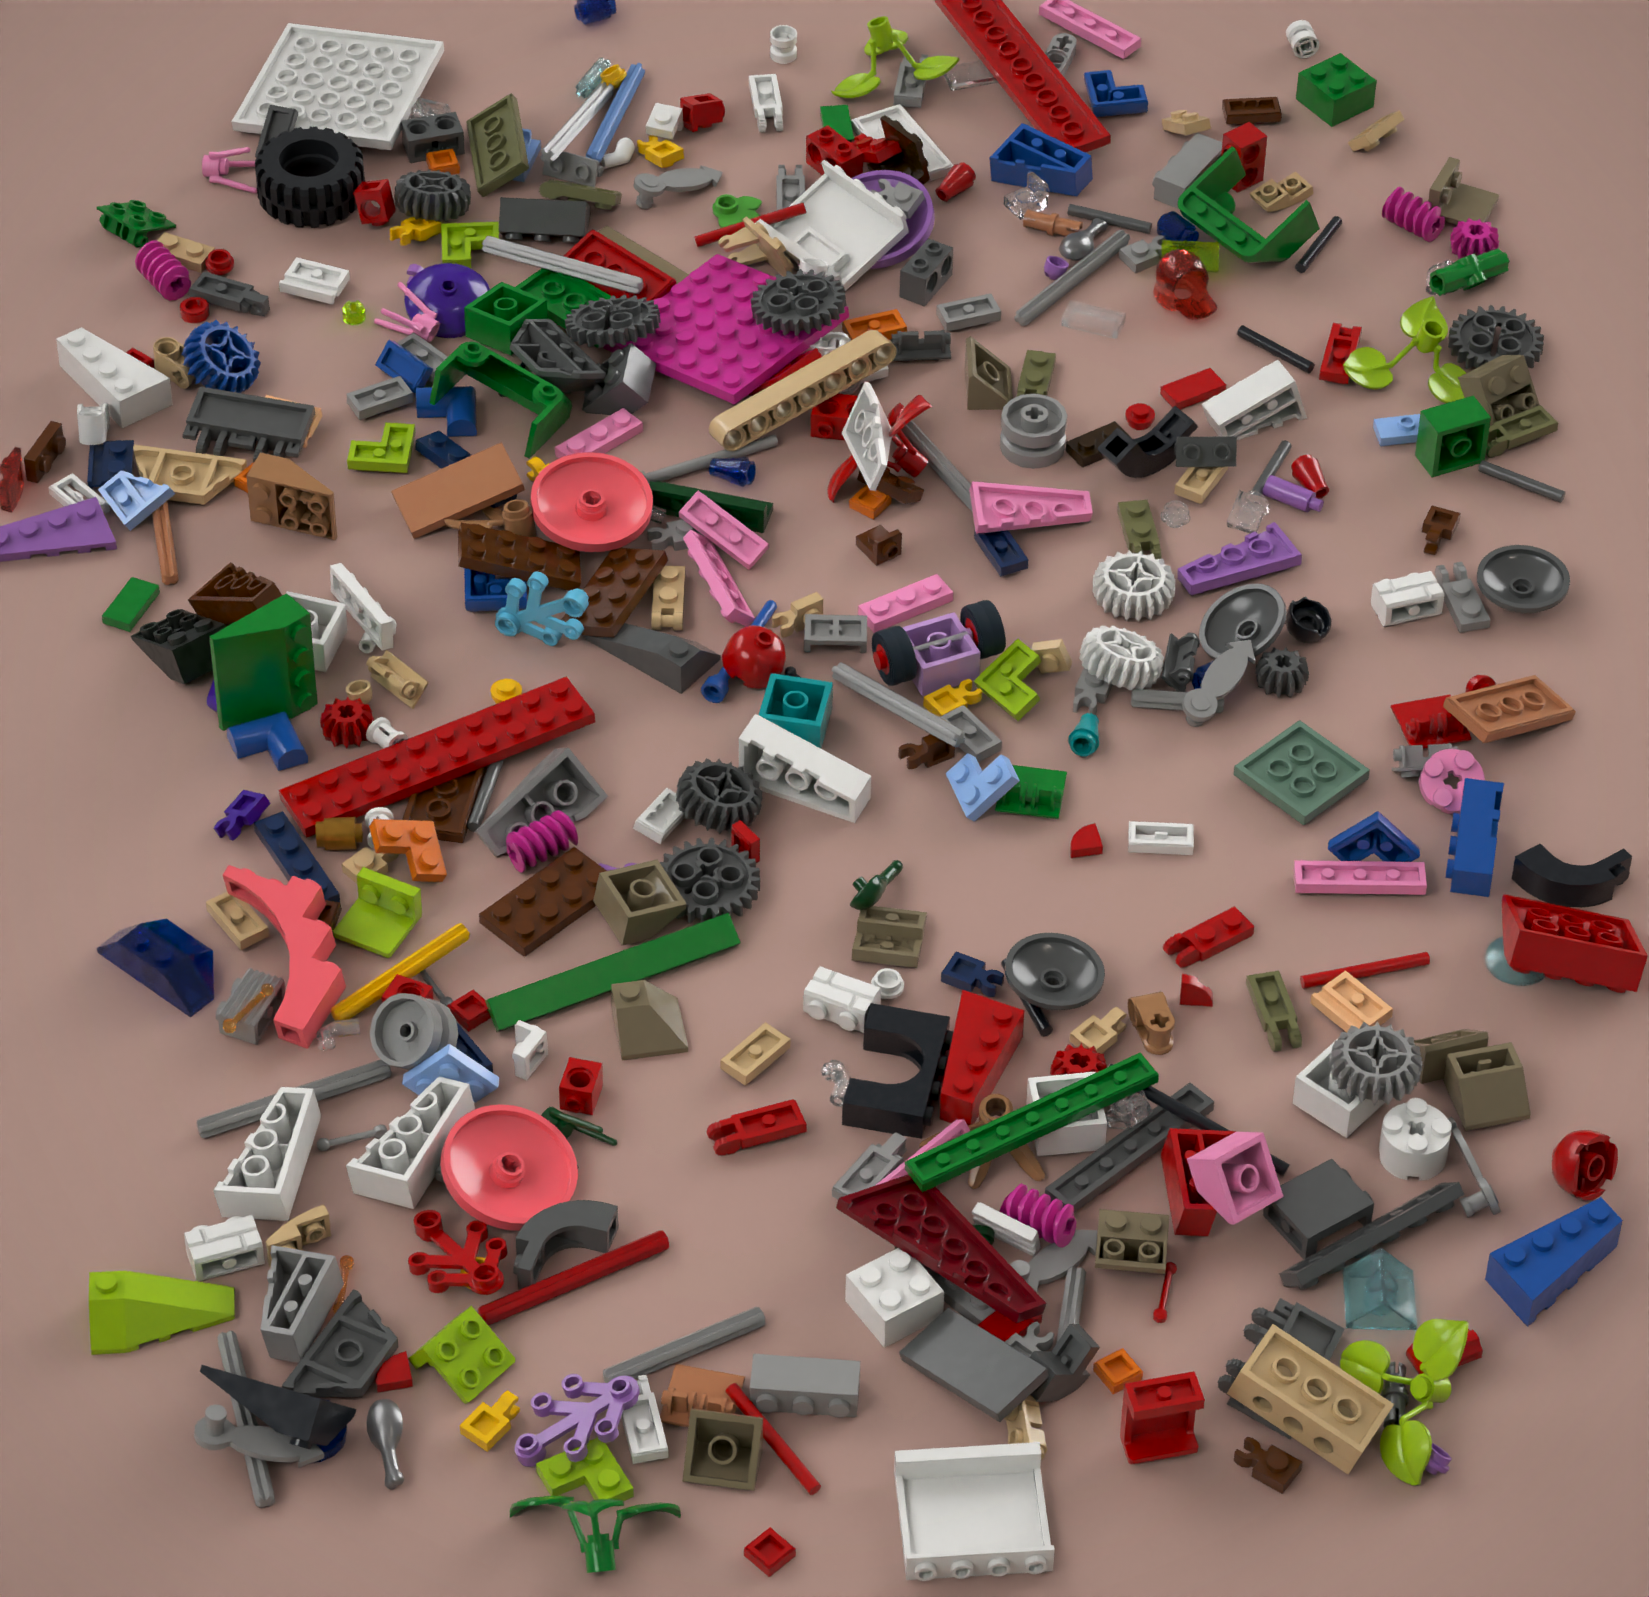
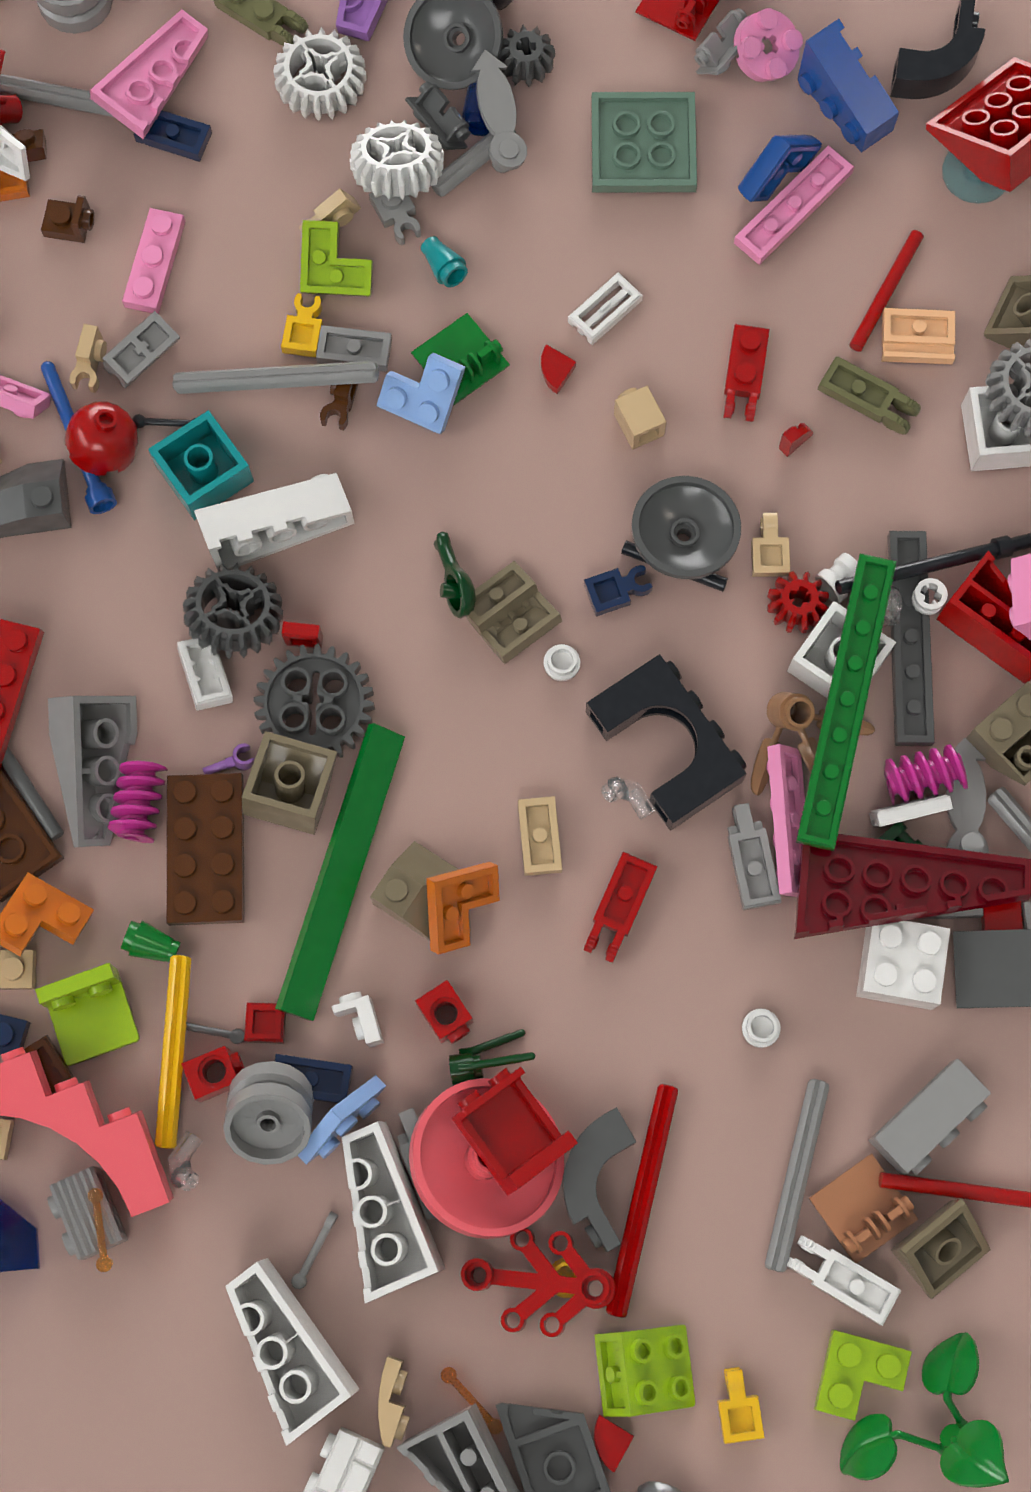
camera: 45 degrees left, 30 degrees up
(323, 1089) = (222, 1271): light grey axle -> none
(454, 909) = (149, 943): none -> green cone
(540, 1158) = (511, 1131): none -> red panel
(615, 1396) = (809, 1333): medium lavender plant -> none
(658, 1028) = (450, 900): none -> orange plate
(762, 1258) = (761, 1028): none -> white plate
(840, 999) = (549, 716): white brick -> none
(940, 648) = (248, 287): brick -> none
(979, 1052) = (712, 666): red wedge -> none
(1104, 902) = (639, 416): none -> tan brick
(1152, 1021) = (794, 494): medium nougat piece -> none
(1164, 1120) = (940, 594): none -> white bush

